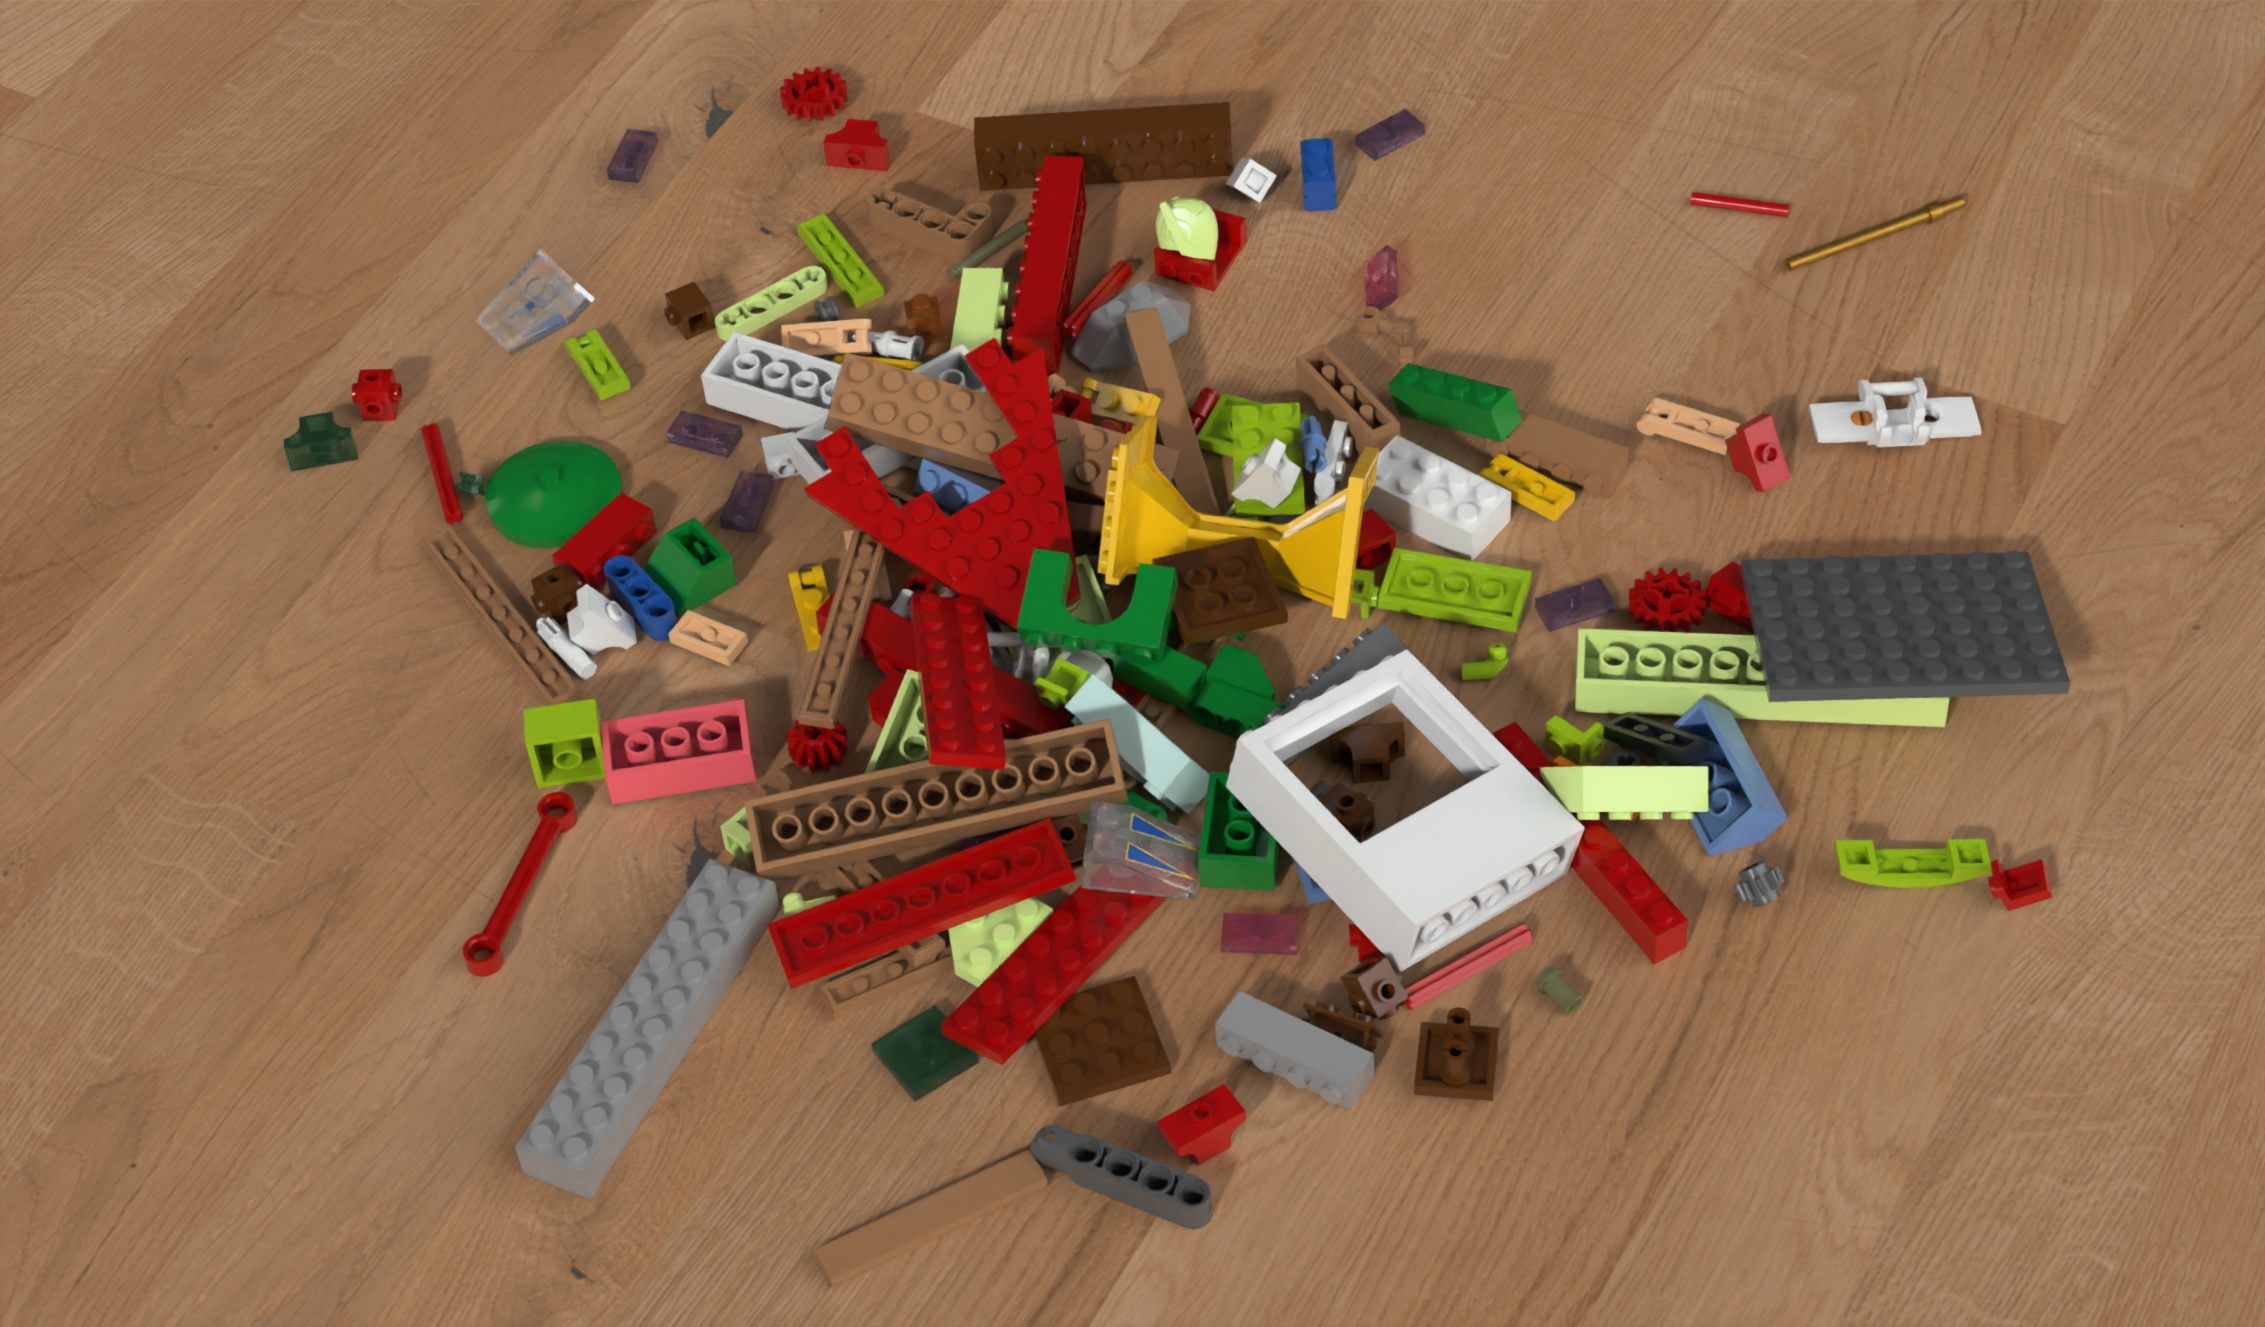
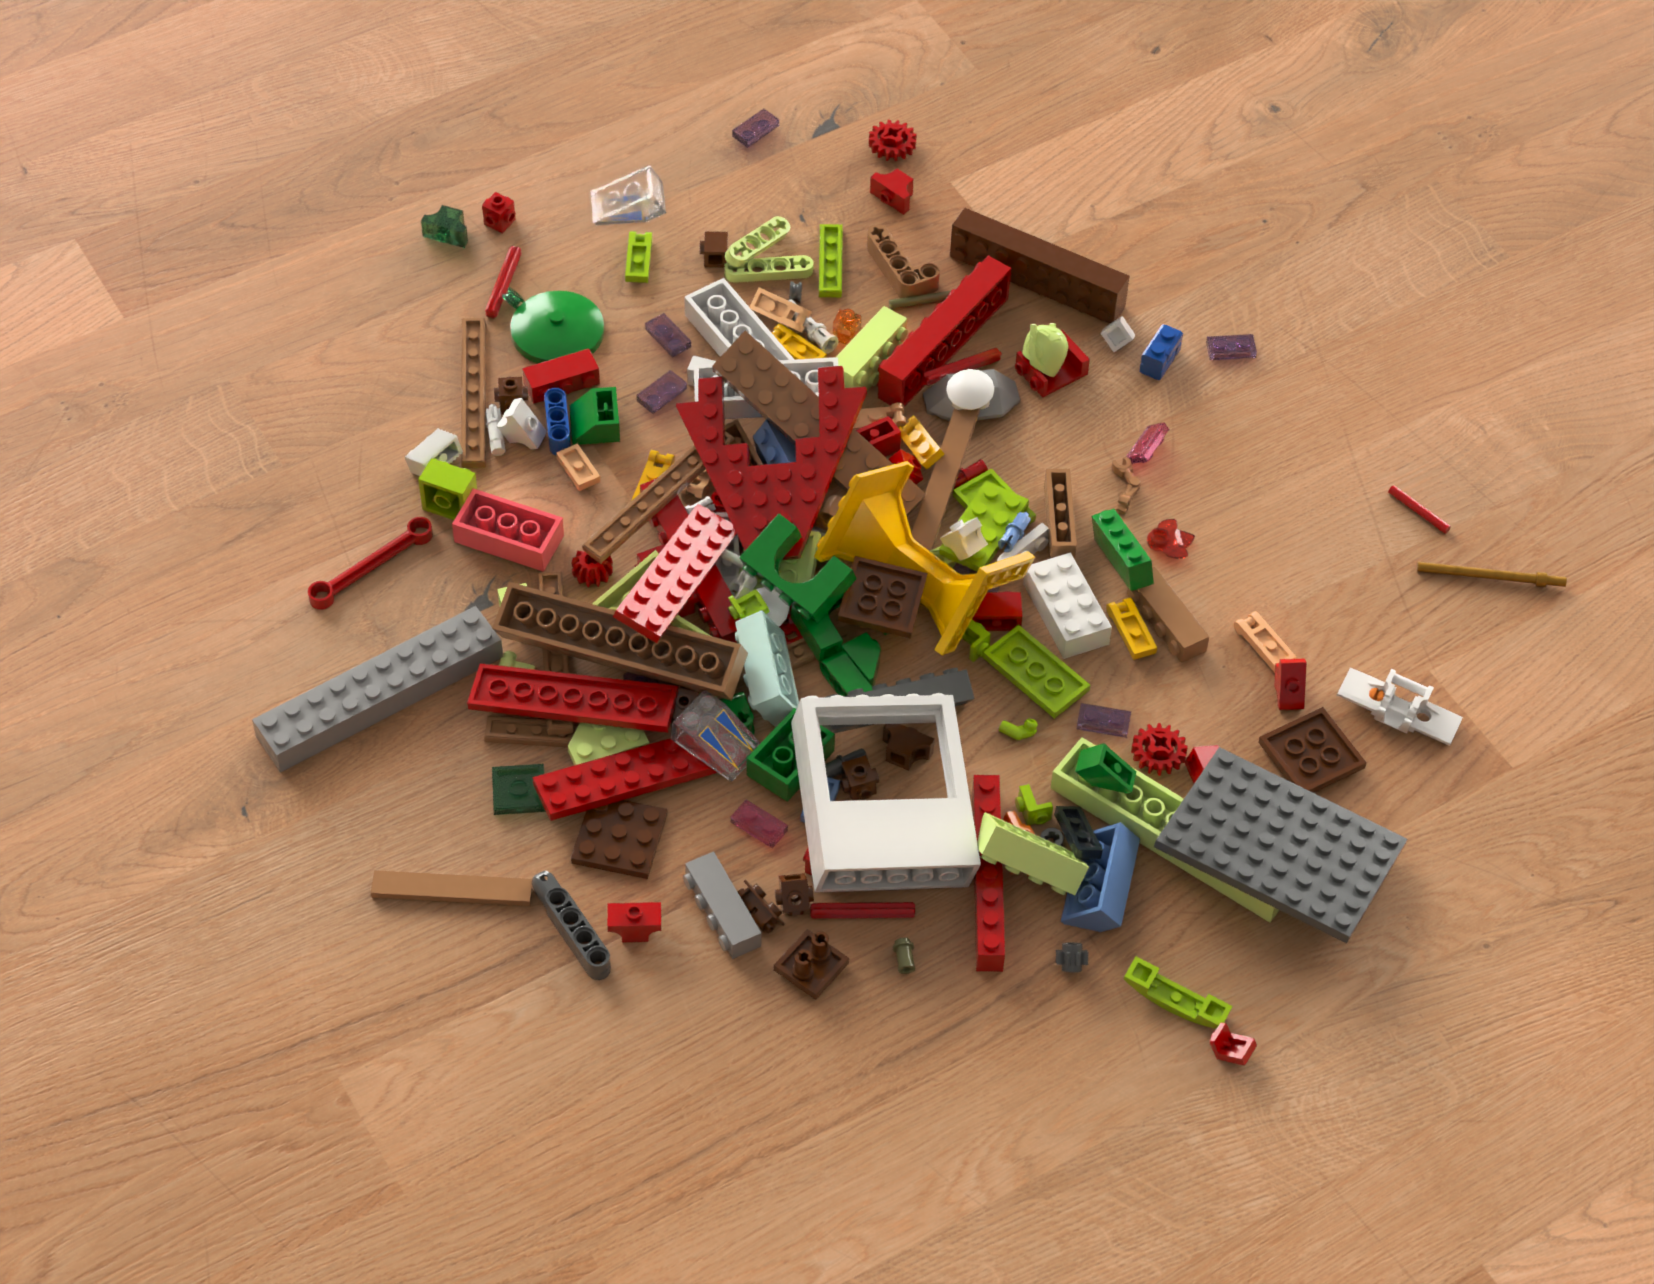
camera: 25 degrees right, 5 degrees up
(503, 716) = (439, 446): none -> white brick
(734, 275) = (758, 242): none -> yellowish green beam
(1140, 312) = (970, 390): none -> white dish
(1492, 369) = (1171, 540): none -> clear red plate
(1640, 646) = (1105, 769): none -> green slope
(1839, 515) = (1312, 751): none -> reddish brown plate

